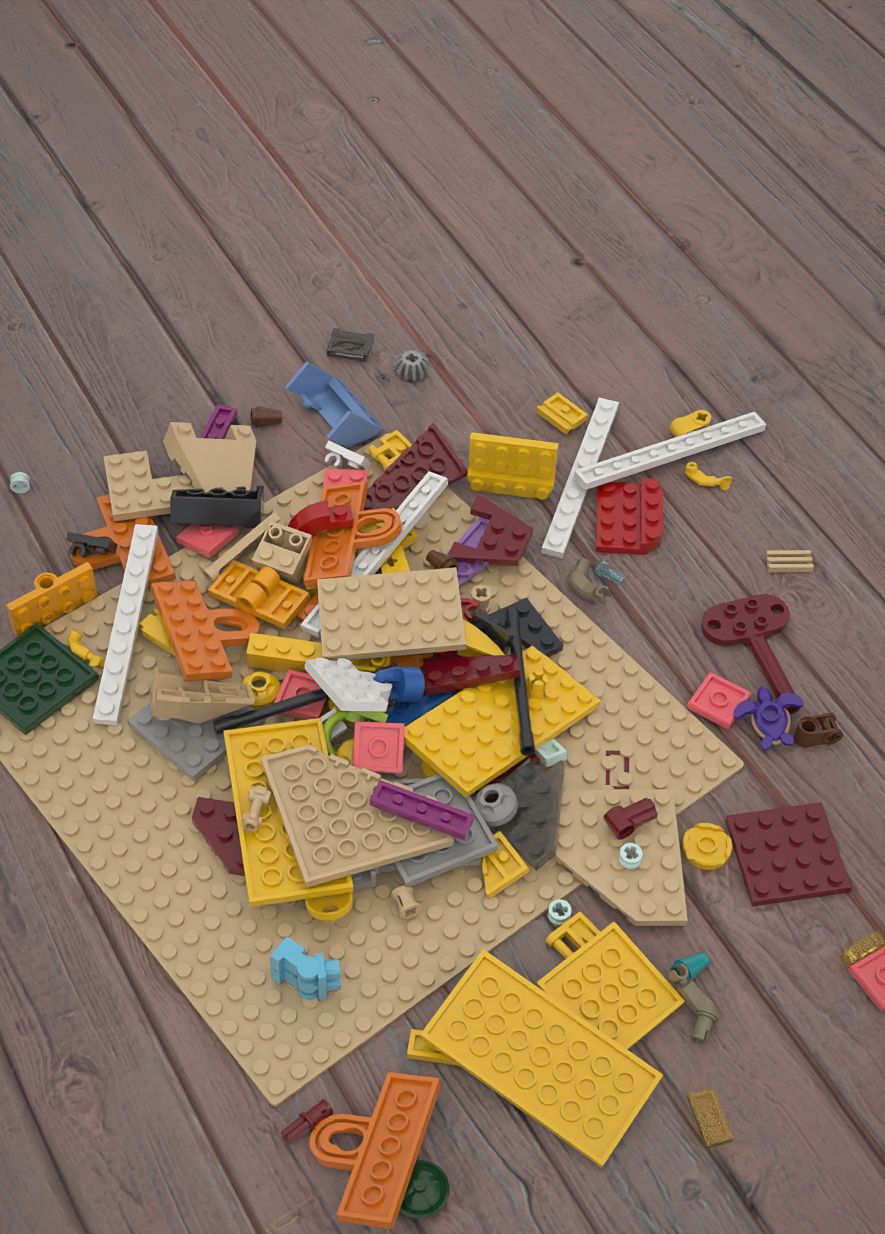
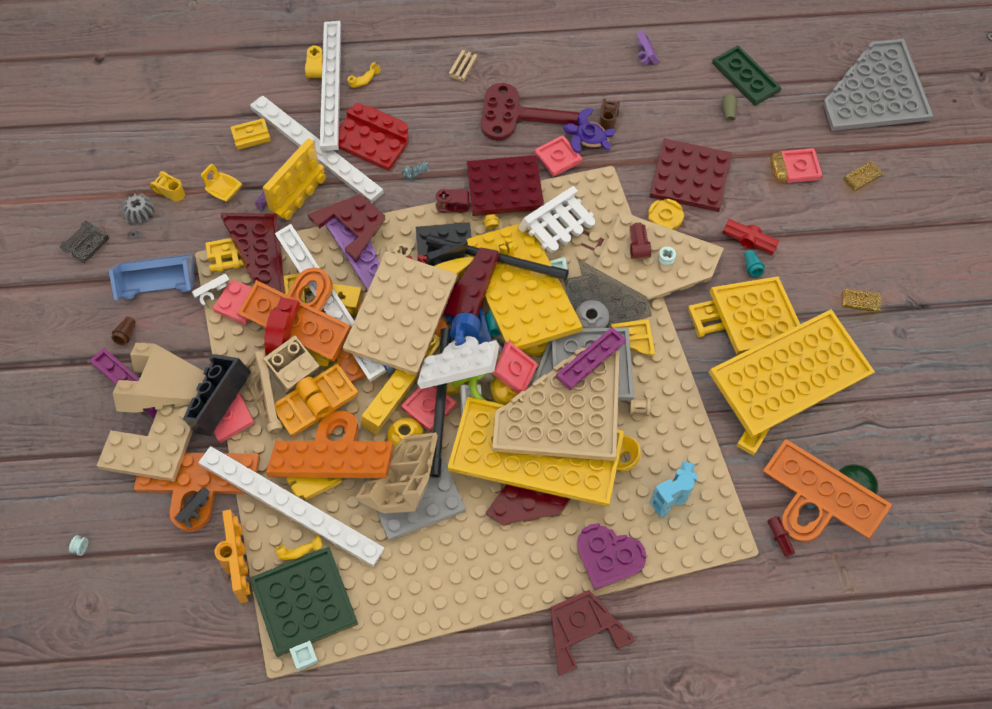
camera: 65 degrees left, 10 degrees up
(106, 935) = (579, 619): none -> dark red wing
(196, 937) = (609, 556): none -> magenta plate
(258, 796) = (524, 462): tan bar -> none
(441, 561) = (361, 264): reddish brown cone -> none
(452, 378) = (168, 187): none -> yellow piece
(476, 417) = (222, 185): none -> yellow piece
(553, 916) = (680, 325): light aqua bush -> none
(575, 664) = (491, 221): none -> yellow plate
(582, 617) = (454, 199): none -> dark red piece
(583, 587) = (421, 190): dark tan arm -> none
(611, 711) = (562, 213): none -> white fence
(639, 661) = (504, 185): none -> dark red plate
(698, 1004) = (784, 269): dark tan arm -> none
(729, 951) = (750, 236): none -> red piece

